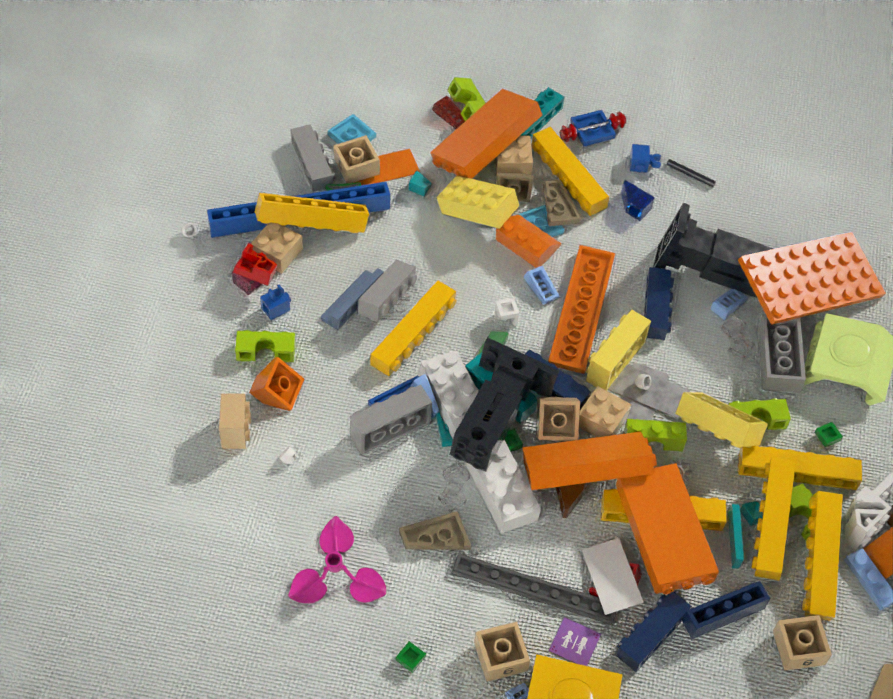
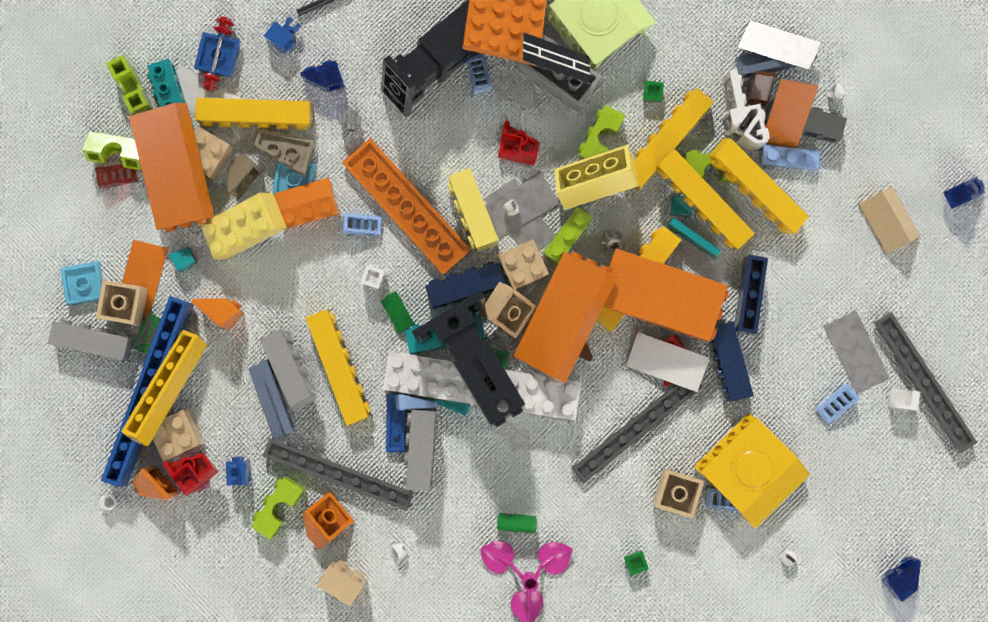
camera: 50 degrees left, 30 degrees up
(226, 249) = (154, 484): none -> orange slope
(324, 377) = (338, 474): none -> dark grey plate
(376, 536) = (516, 523): none -> green slope
(399, 223) = (220, 310): none -> orange slope
(436, 534) = (544, 475): dark tan wing -> none
(529, 80) = (127, 79): none -> lime arch
(575, 642) = (697, 425): medium lavender sticker -> none
(616, 233) = (350, 120): none -> light grey gear
(657, 302) = (442, 138): dark blue brick -> none
(696, 360) = (517, 146): none -> red slope
(789, 332) = (556, 58): none -> black sticker
(802, 642) = (811, 257): tan brick -> none

